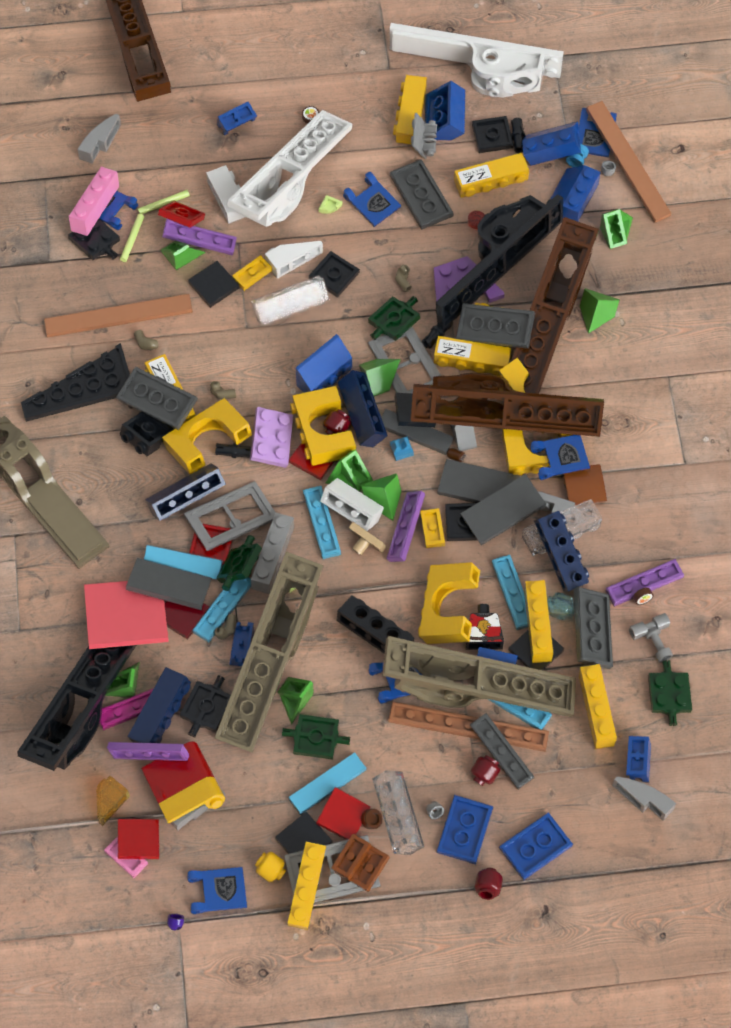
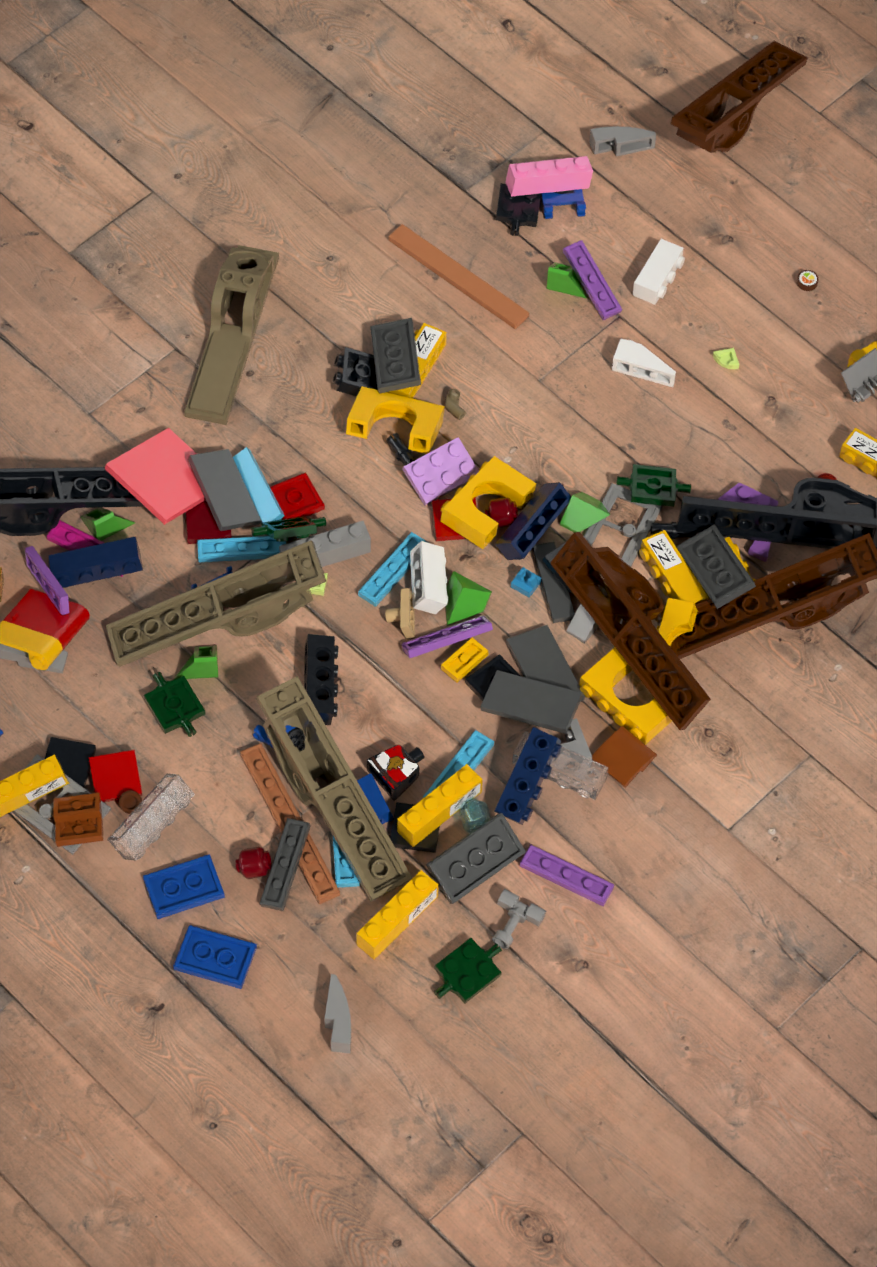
camera: 50 degrees right, 5 degrees down
(83, 387) = (360, 298): black wing -> none
(131, 239) = (546, 233): yellowish green bar -> none
(145, 343) = (449, 314): dark tan arm -> none
(158, 204) = (605, 231): yellowish green bar -> none
(181, 214) = (601, 250): red tile -> none
(185, 492) = (325, 441): brick -> none
(205, 706) = (130, 596): black plate -> none
(213, 284) = (558, 325): black tile -> none
(229, 629) = (220, 567): dark tan arm -> none
(236, 117) = (743, 223): blue hinge -> none
(237, 529) = (329, 507): light grey door -> none
(252, 272) = (595, 345): yellow plate -> none
(258, 196) = (680, 304): white piece -> none
(270, 866) = (18, 751): yellow head -> none
(290, 300) = (593, 391): clear brick -> none
(324, 366) = (548, 460): blue slope -> none
(324, 784) = (145, 746): medium azure tile -> none
(336, 273) = (658, 410): black tile -> none
(351, 471) = (463, 555): bright green slope -> none
(374, 202) = (763, 391): blue flag -> none
(401, 278) = (705, 464): dark tan arm -> none
(421, 194) = (810, 422): dark grey tile -> none
(439, 810) = (177, 846): light grey hinge -> none
(441, 581) = (413, 701): yellow arch -> none
(456, 455) = (560, 630): reddish brown piece -> none
(488, 883) = (142, 938): dark red head -> none
(564, 455) = (632, 714): blue flag -> none
(597, 308) = (824, 646): bright green slope -> none
(639, 757) = (374, 985): blue hinge -> none
(643, 596) = (548, 881): reddish brown tile -> none

